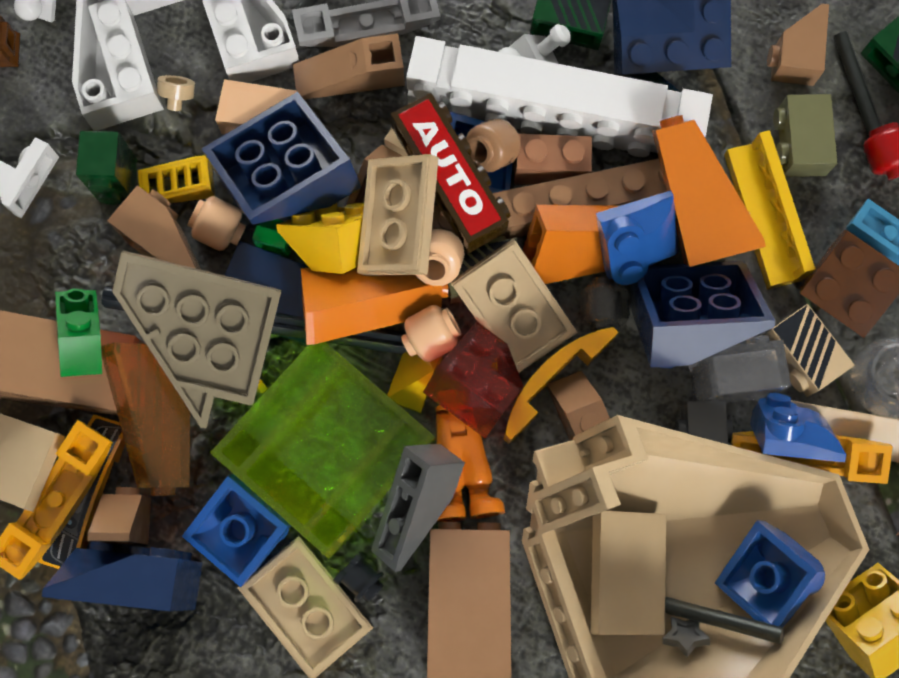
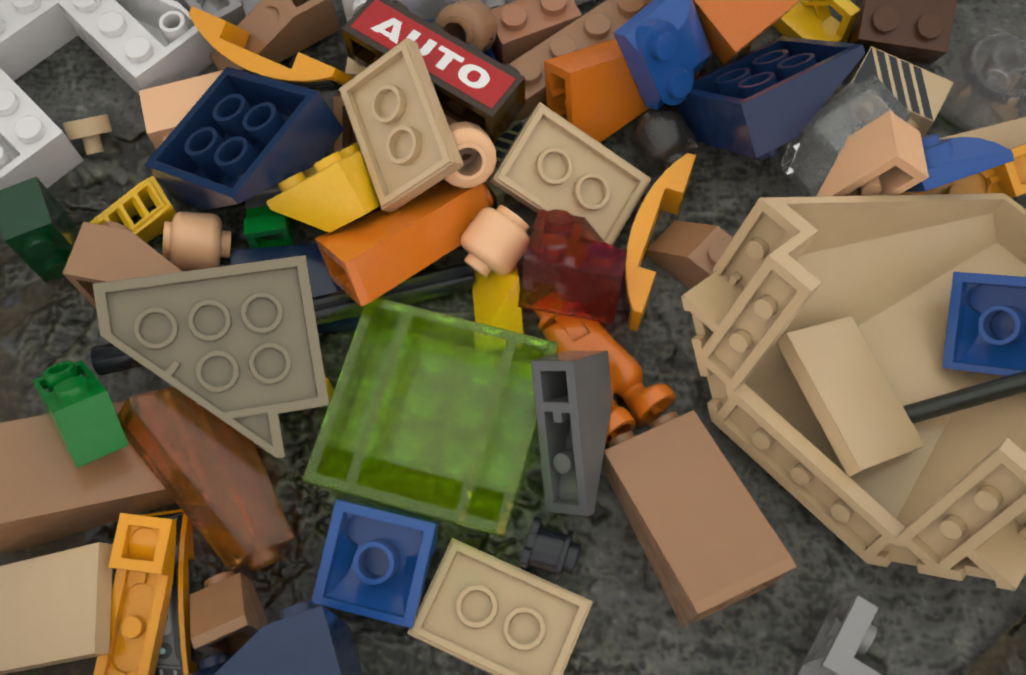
camera: 20 degrees left, 10 degrees down
(307, 68) = (232, 41): none -> light orange slope
(685, 636) = (949, 434): dark grey piece -> none
(736, 416) = (878, 160): none -> light nougat slope

